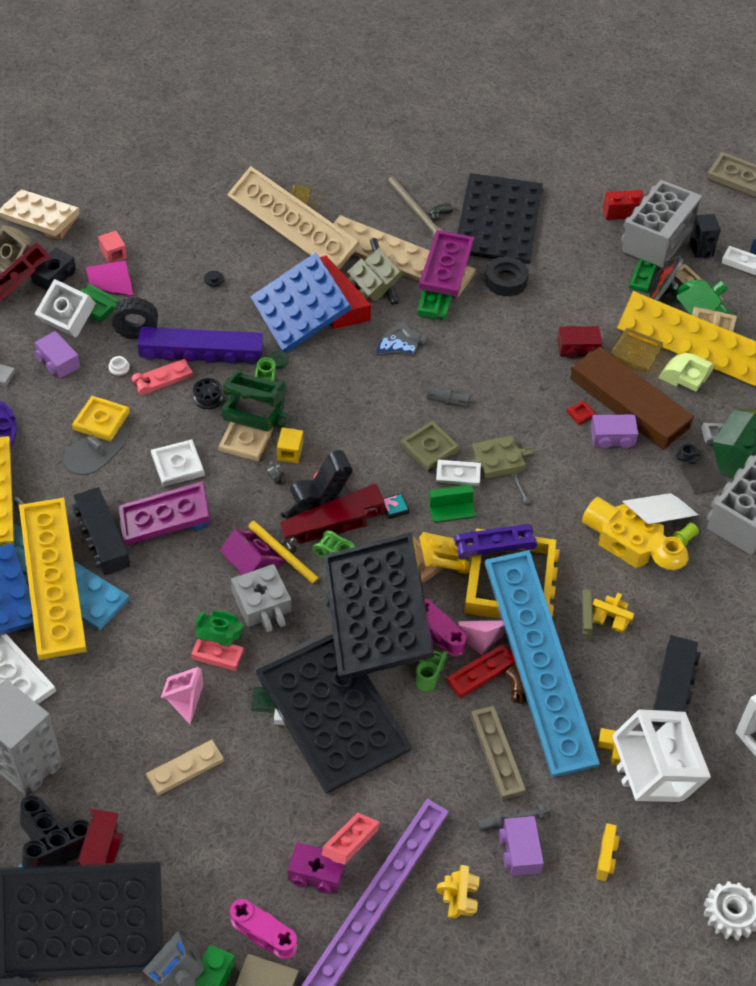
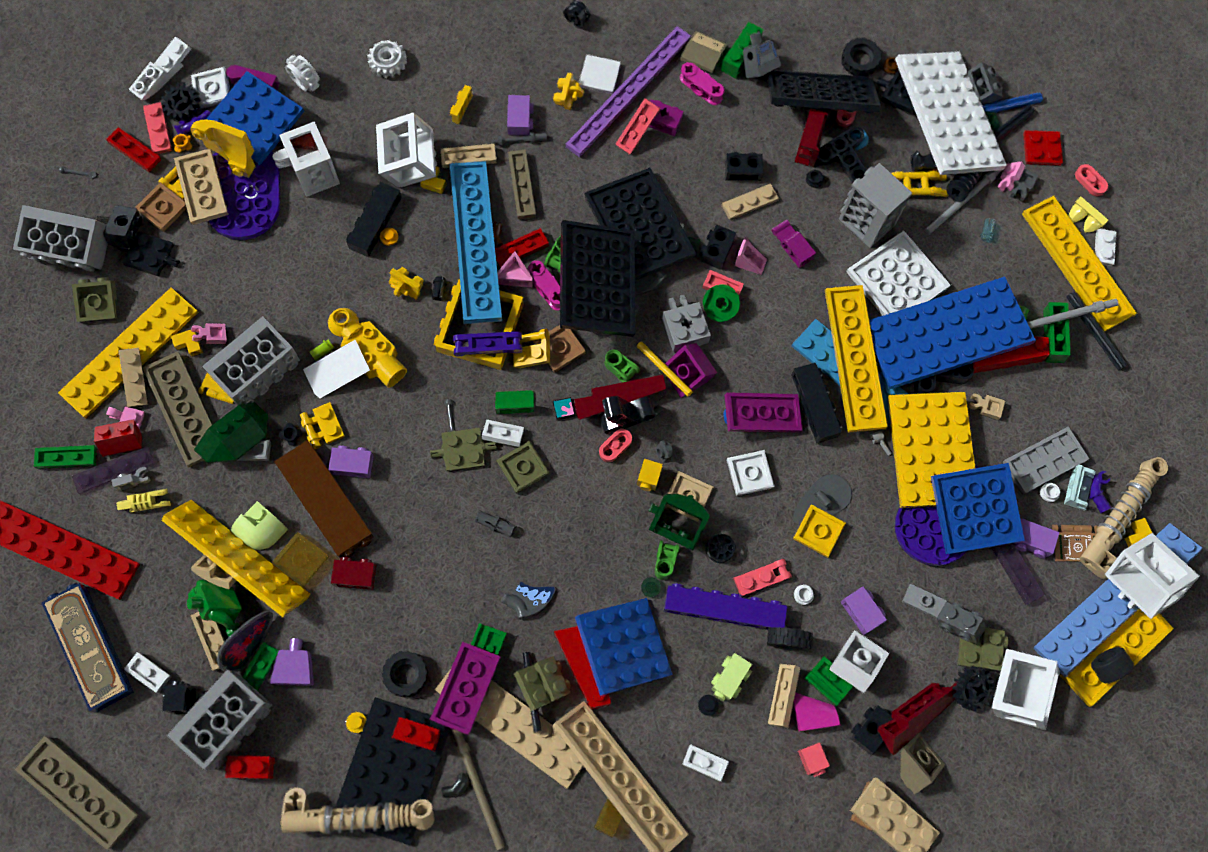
camera: 175 degrees left, 20 degrees up
(93, 803) = (814, 178): none -> black plate
(125, 713) = (794, 243): none -> magenta piece
(141, 281) = (784, 695): none -> tan plate
(192, 293) = (727, 683): none -> yellowish green brick
(195, 802) = (744, 171): none -> black brick
(214, 239) = (705, 763): none -> white plate
(222, 696) = (721, 248): none -> black brick
(418, 932) = (599, 74): none -> white tile
(483, 226) = (416, 734): none -> red brick
(526, 173) = (352, 818): none -> tan piece
(541, 244) = (356, 722): none -> yellow plate
(570, 615) = (439, 287): none -> black pin
(577, 782) = (468, 154): none -> tan plate
(581, 412) = (374, 492): red tile -> none
(587, 615) = (426, 282): olive tile -> none
(611, 271) = (293, 666): none -> medium lavender torso
(649, 668) = (389, 236): none -> light orange plate
(652, 468) = (328, 424): none -> yellow plate

